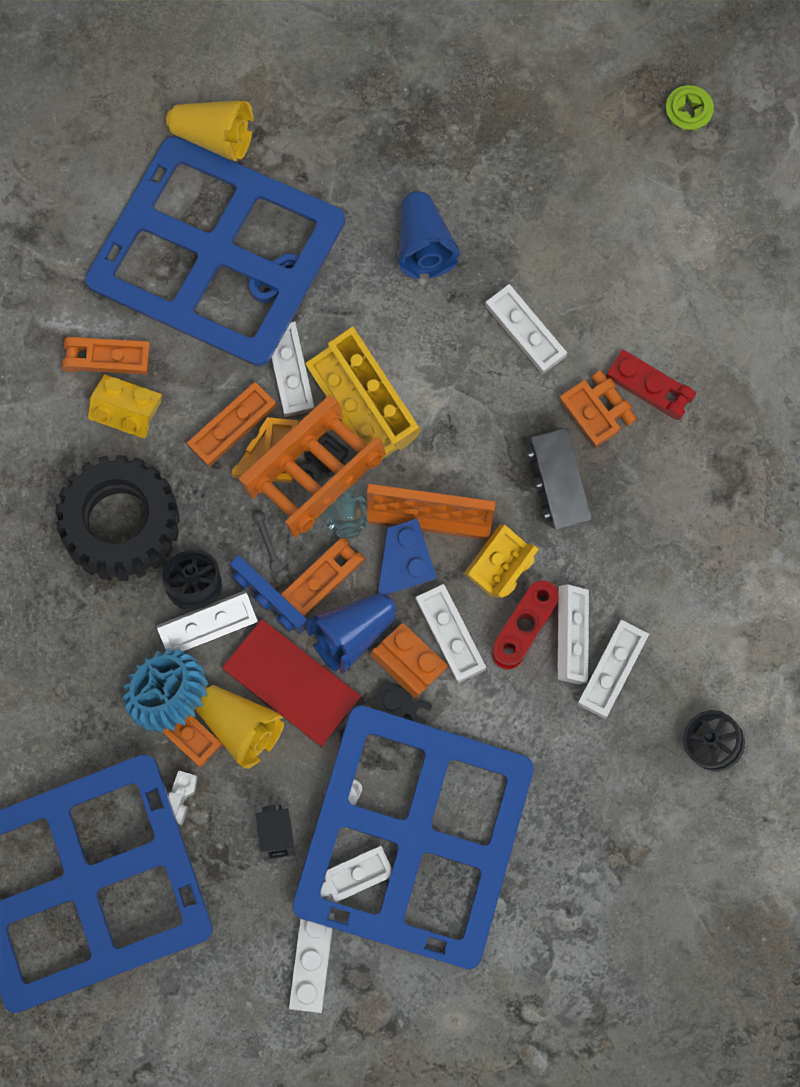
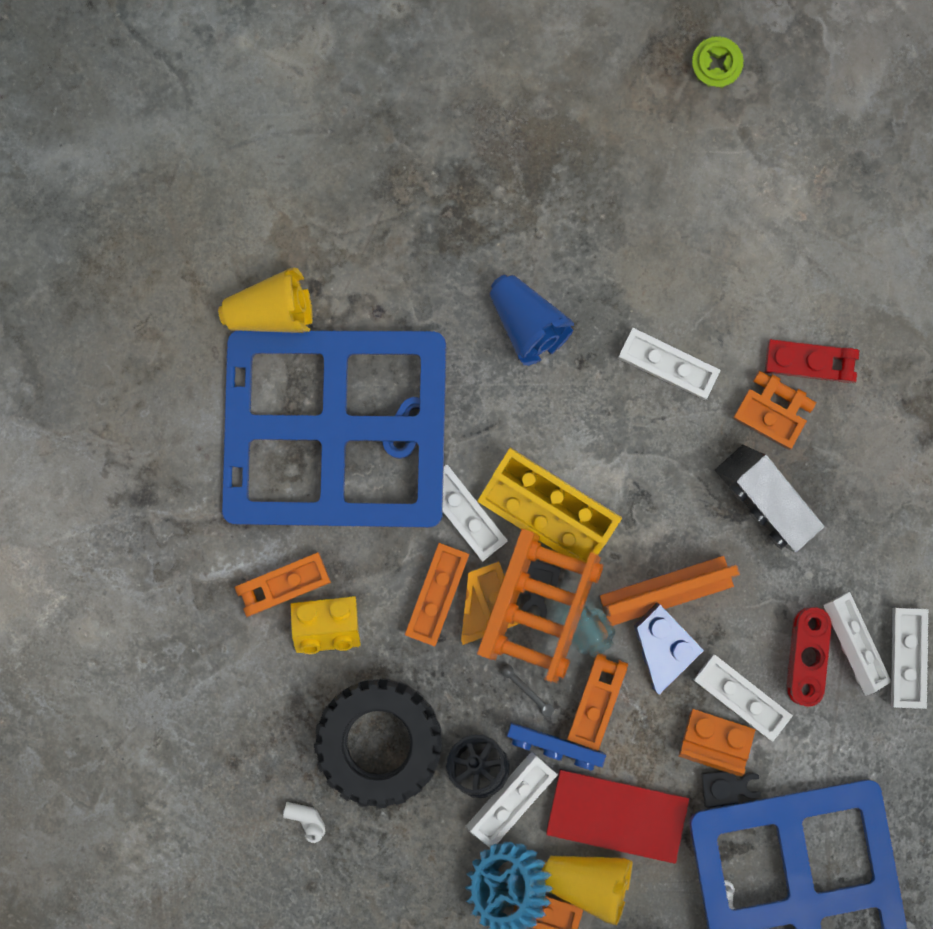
camera: 20 degrees left, 10 degrees up
(25, 558) = (309, 819): none -> white arm
(350, 629) = (651, 741): blue cone -> none
(501, 562) = (758, 607): yellow bracket -> none

